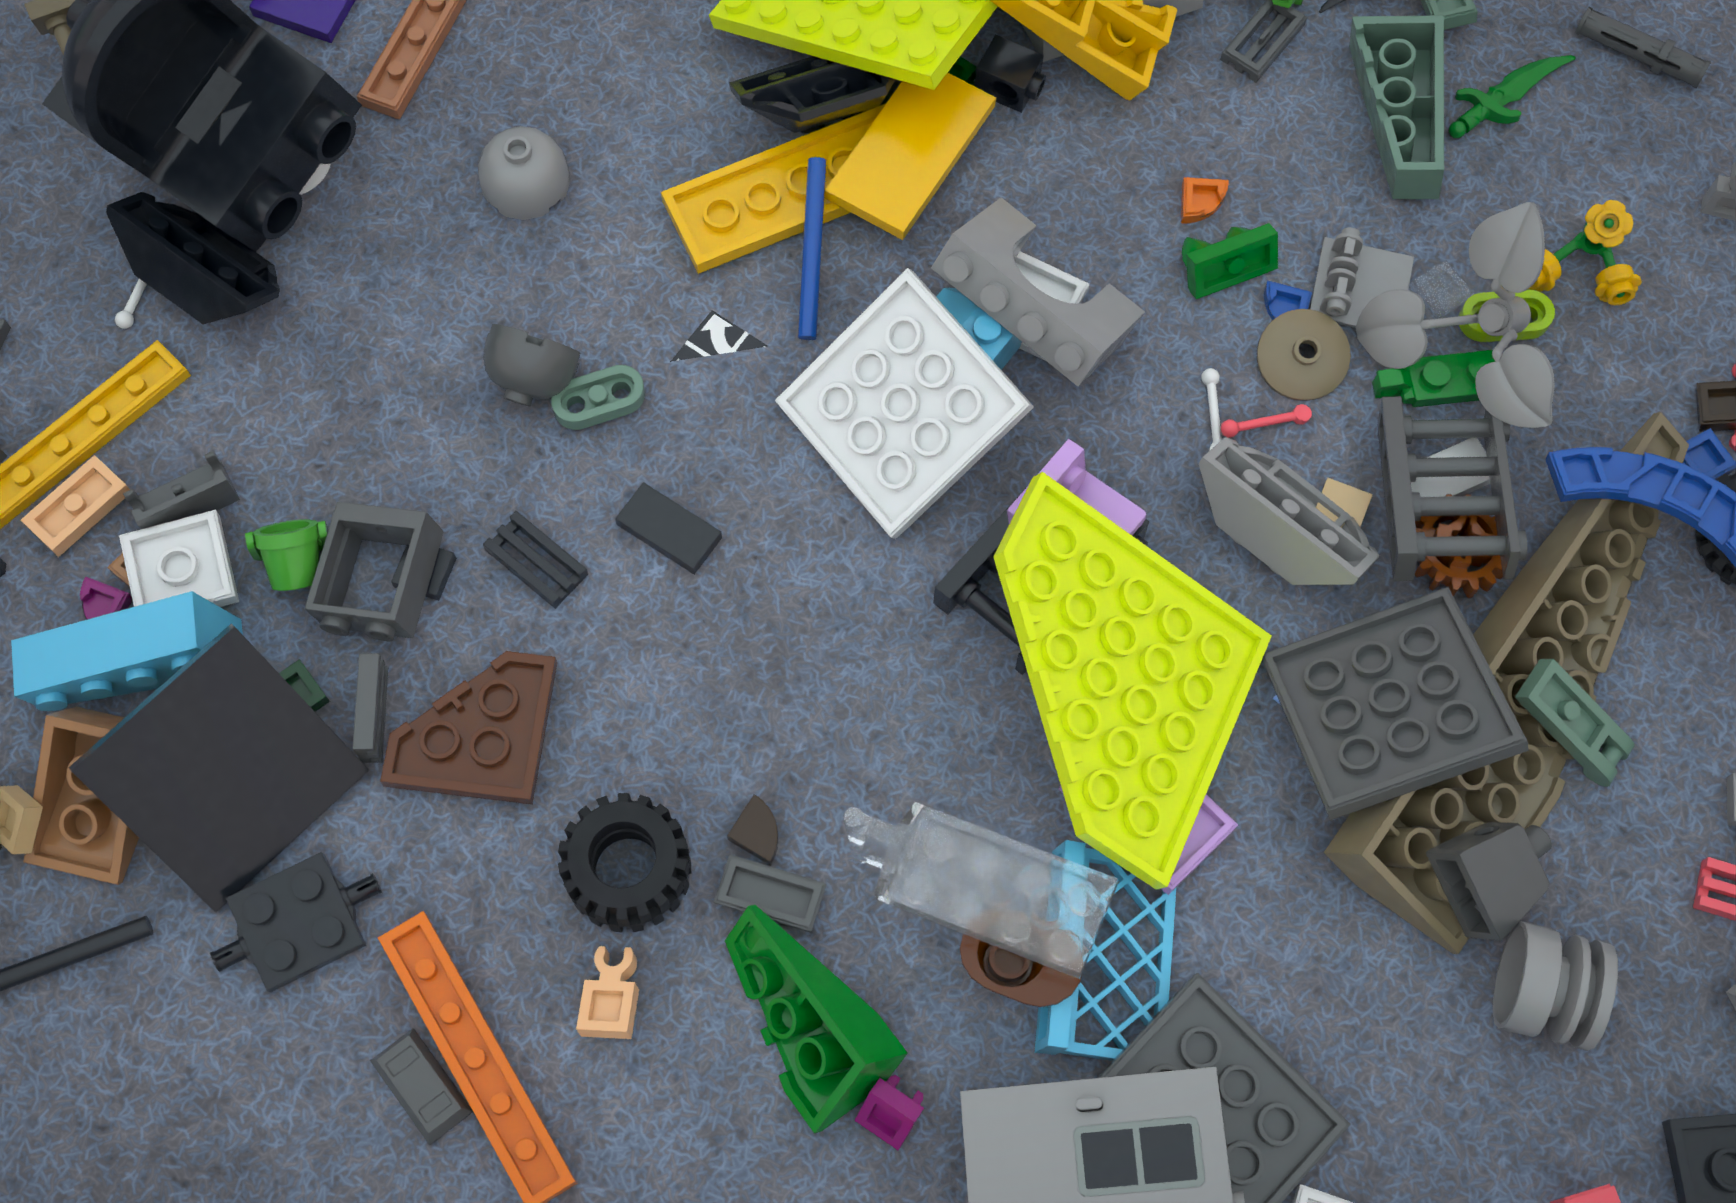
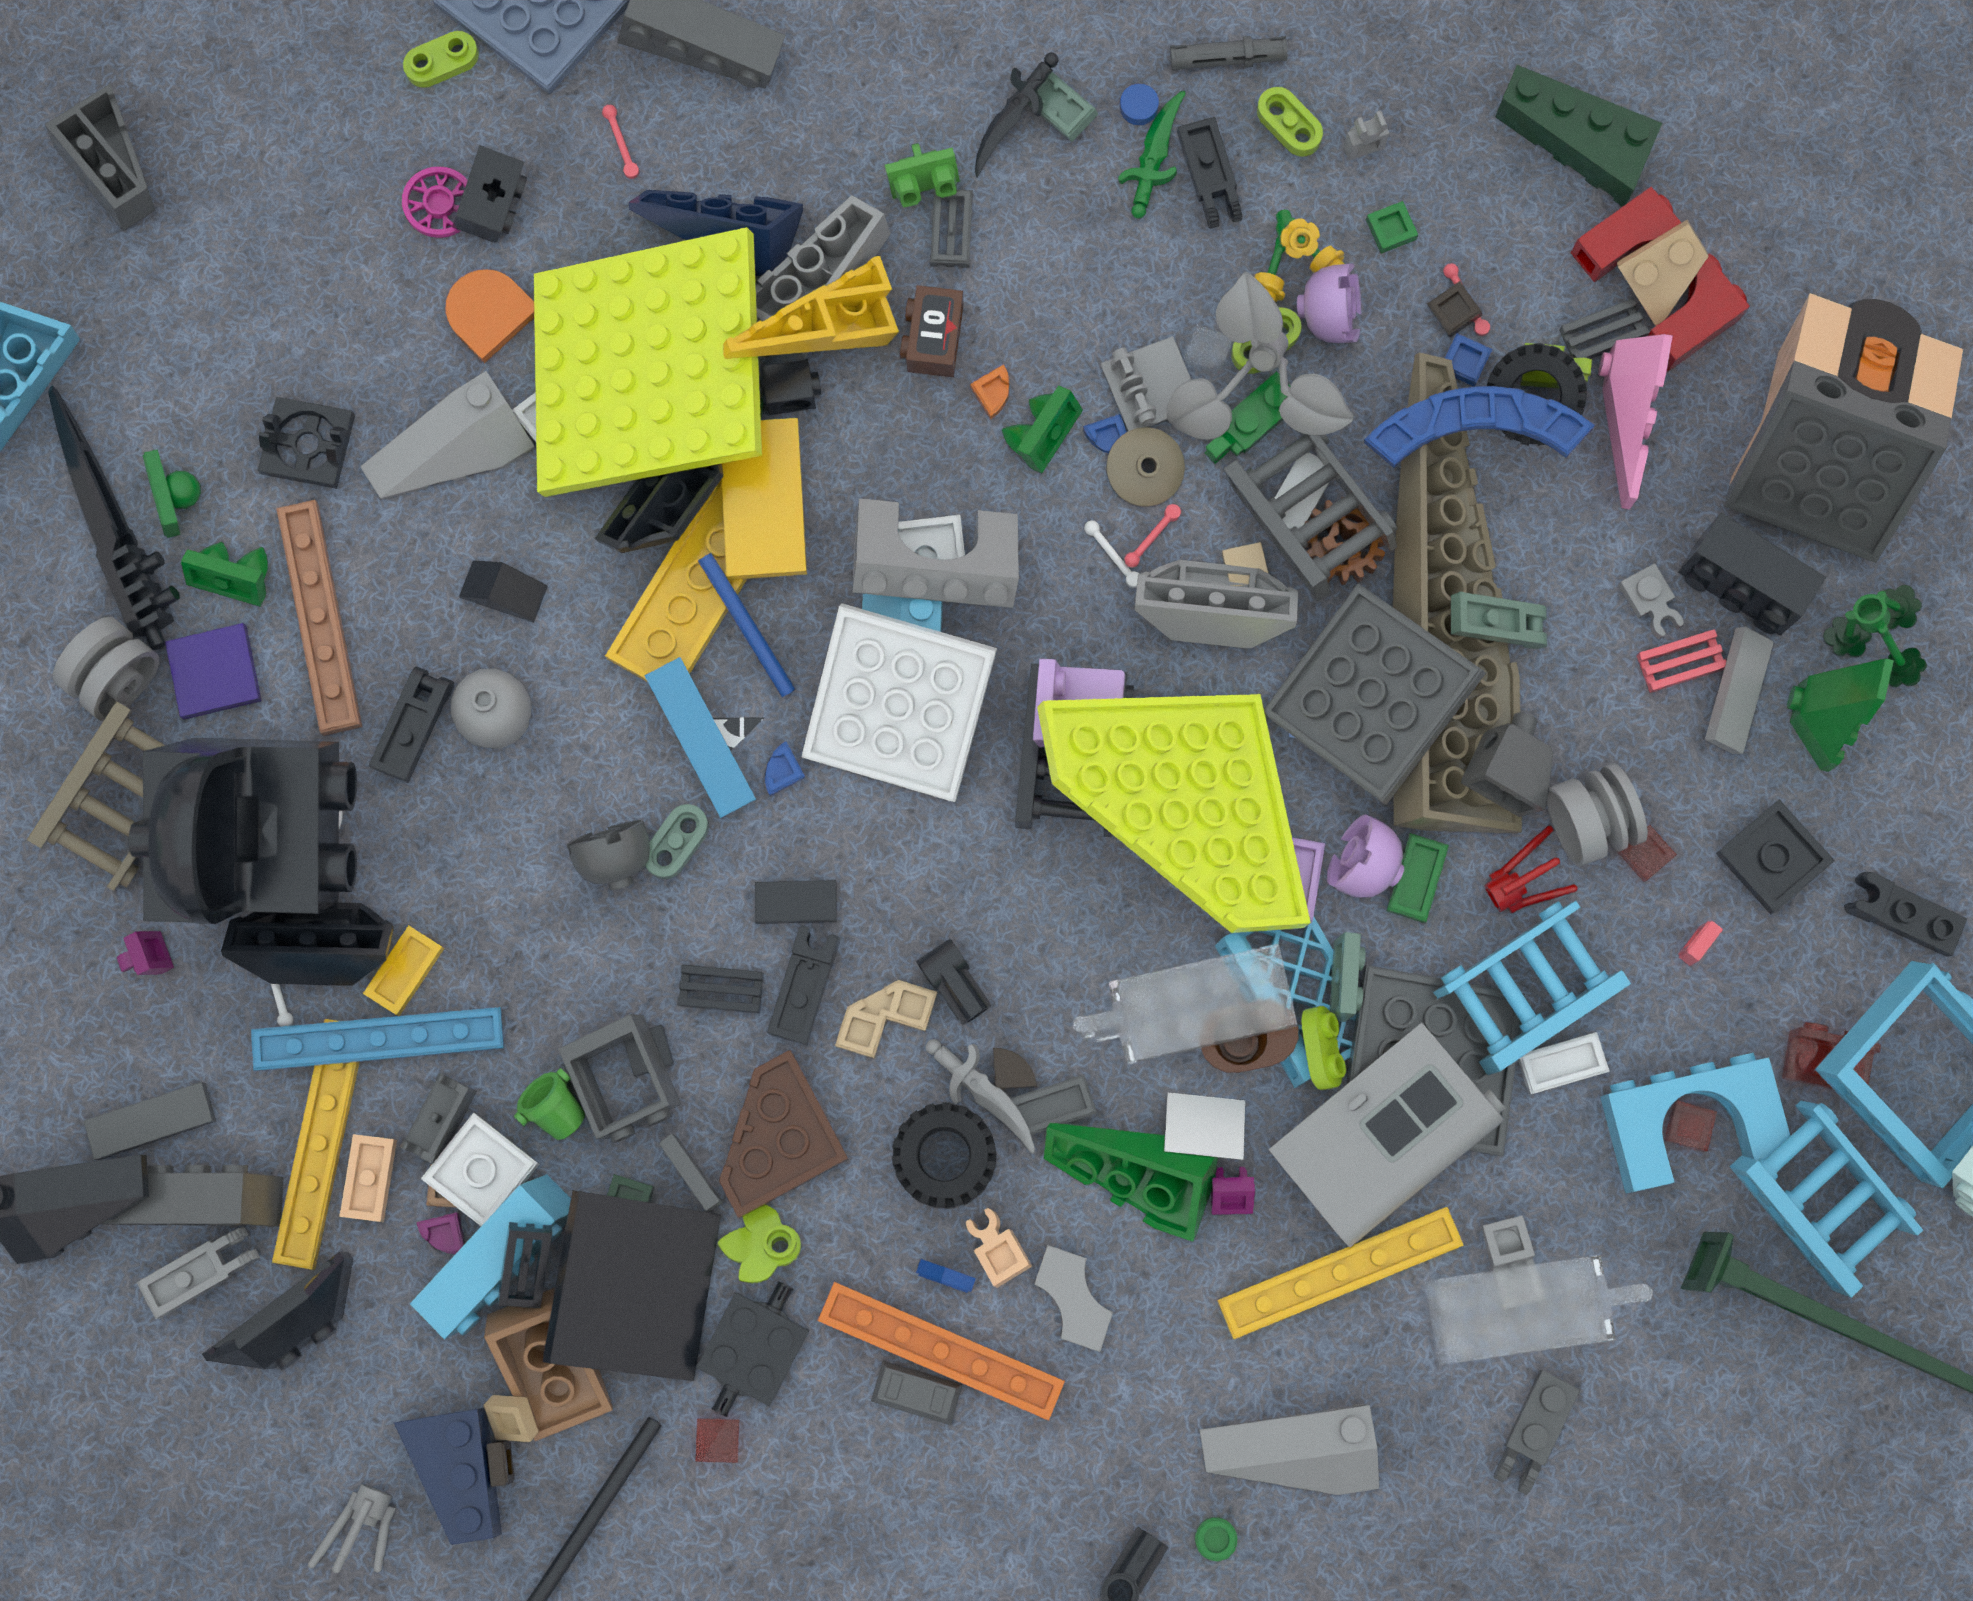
camera: 30 degrees left, 10 degrees up
(51, 178) = (145, 954): none -> magenta tile
(162, 642) = (529, 1234): none -> black tile
(187, 387) = (377, 1039): none -> dark azure tile
(192, 988) = (717, 1440): none -> clear red tile
(261, 347) = (403, 971): none -> yellow tile
(378, 821) = (755, 1242): none -> lime plate
(439, 141) = (410, 725): none -> black plate
(538, 987) = (945, 1276): none -> blue tile
(614, 608) = (803, 988): none -> black plate
(617, 84) = (503, 589): none -> black slope
(644, 1130) = (1082, 1316): none -> light grey tile
(653, 683) = (897, 1003): none -> tan tile
(692, 319) = (700, 737): none -> dark azure tile
(712, 832) = (983, 1091): none -> light grey piece
(748, 401) = (782, 770): none -> blue tile
(763, 694) = (949, 974): none -> black piece
(911, 1021) = (1205, 1126): none -> white sticker
(1090, 1023) = (1321, 1046): none -> lime plate
(1181, 955) = (1347, 962): none -> sand green plate
(1182, 109) = (933, 331): none -> brick
(1273, 869) = (1368, 860): none -> lavender cylinder
(1313, 926) = (1417, 886): none -> green tile
(1338, 1163) = (1534, 1027): none -> medium azure fence
(1403, 91) = (1083, 209): sand green wedge -> none
(1403, 1001) = (1507, 889): none -> red plant
(1522, 41) = (1139, 104): none -> blue tile
(1554, 133) = (1209, 168): none -> black hinge
(1583, 1072) = (1648, 856): none -> clear red tile
(1598, 318) = (1331, 304): none -> lavender cylinder
(1665, 143) = (1293, 121): none -> lime plate
(1705, 294) = (1391, 227): none -> green tile

